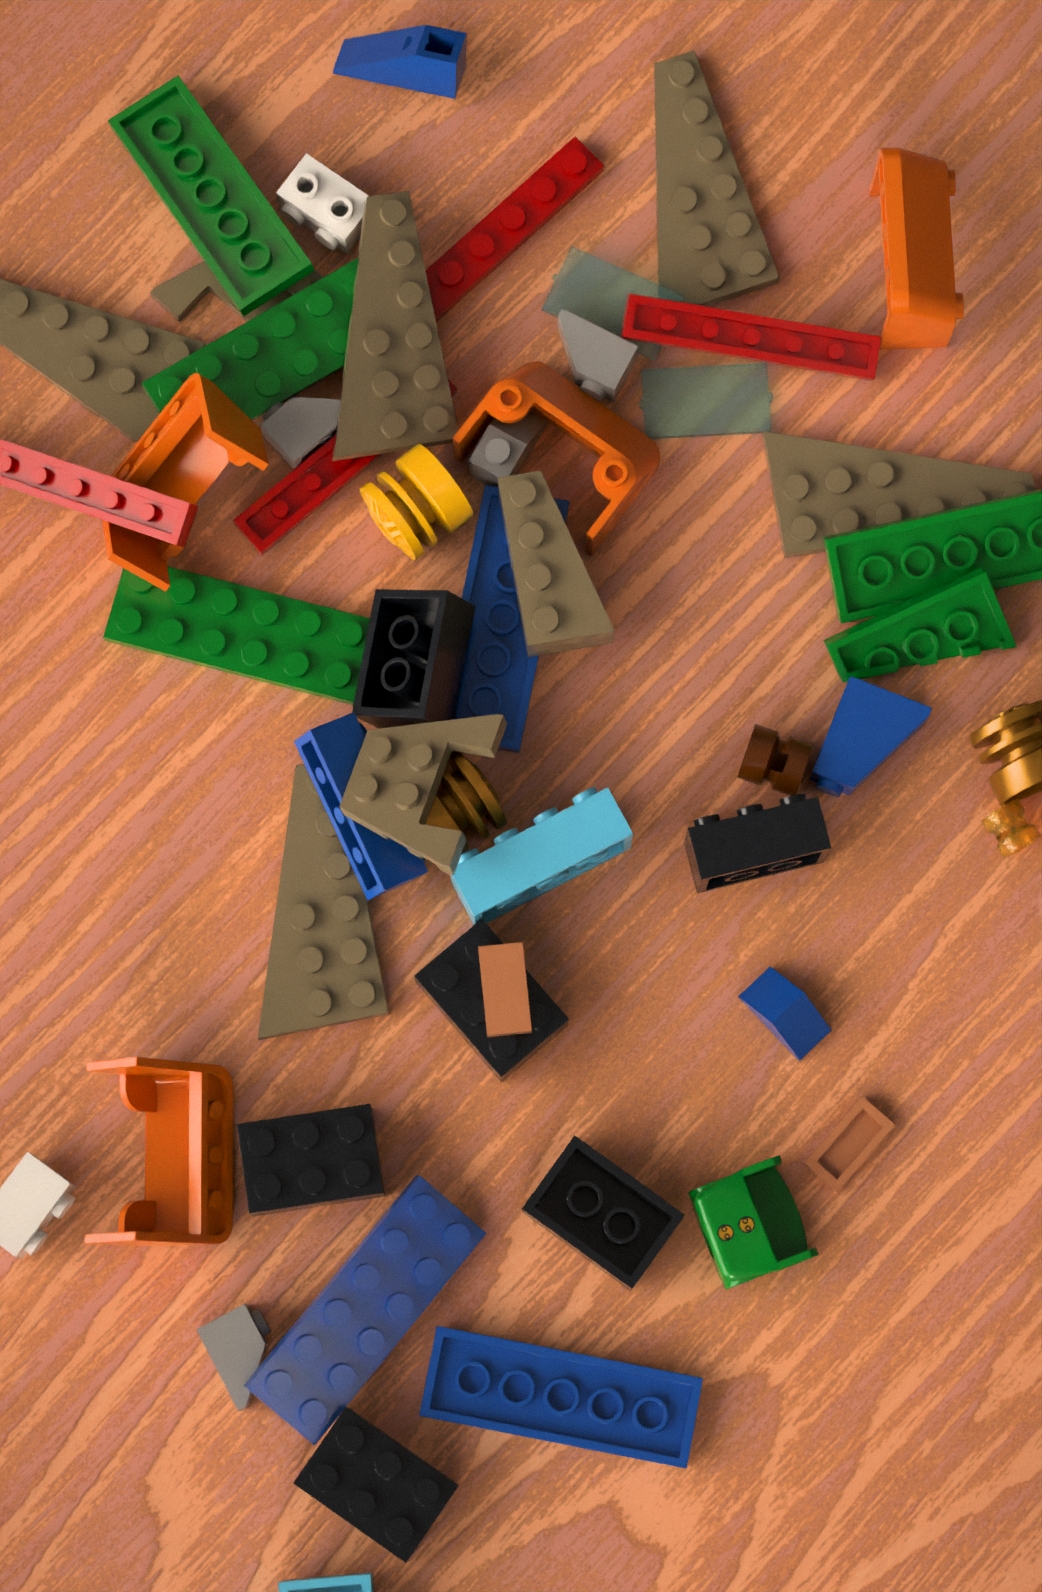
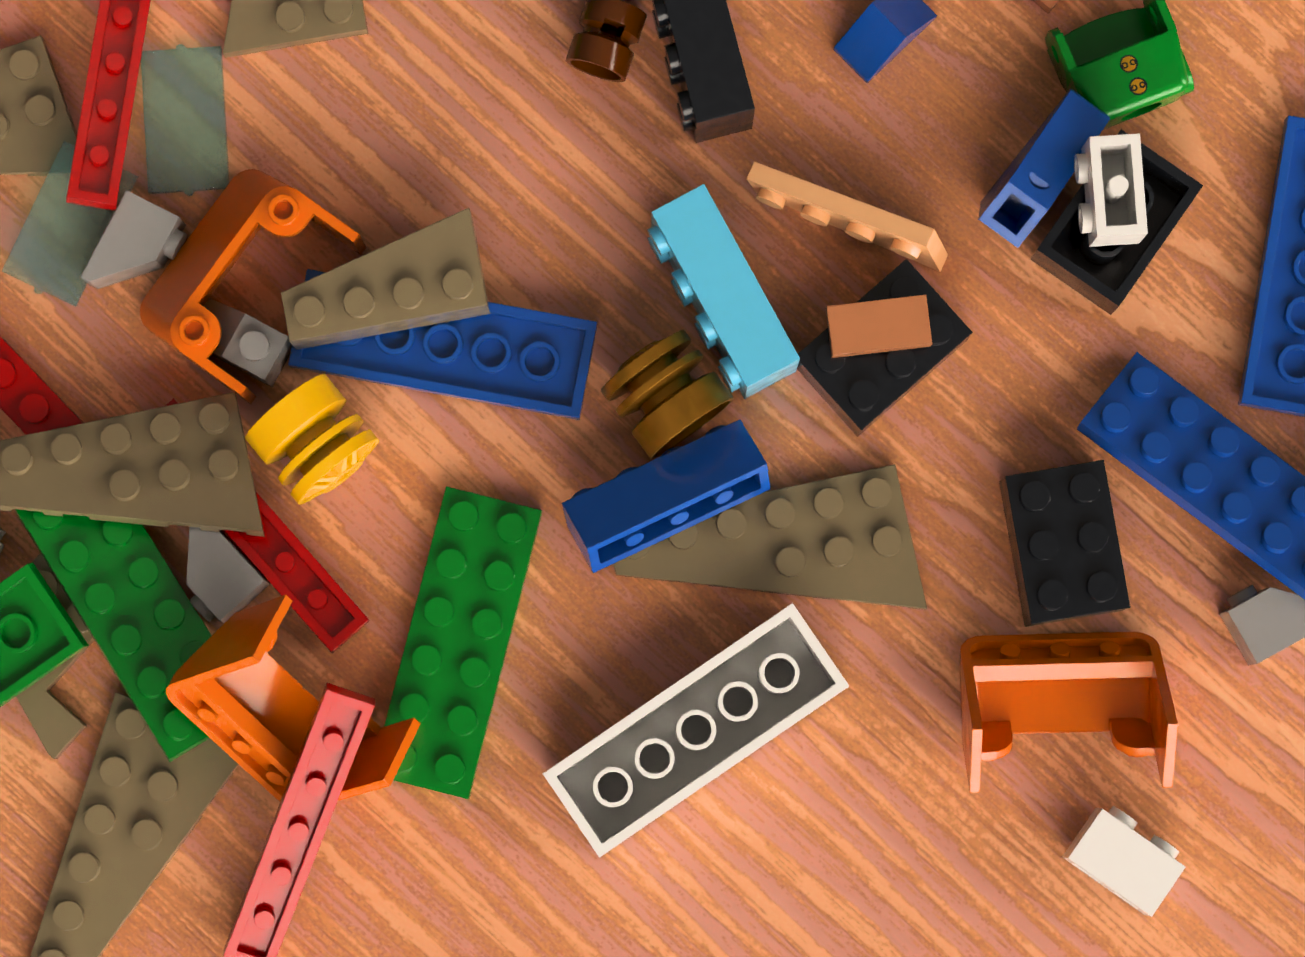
camera: 90 degrees left, 5 degrees up
(154, 829) = (695, 730): none -> white brick
(400, 778) = (645, 445): dark tan wing -> none
(413, 657) = (498, 438): black brick -> none
(604, 980) = (848, 214): none -> light nougat wing
(623, 1197) = (1113, 190): none -> white brick
(650, 1144) = (1041, 169): none -> blue slope

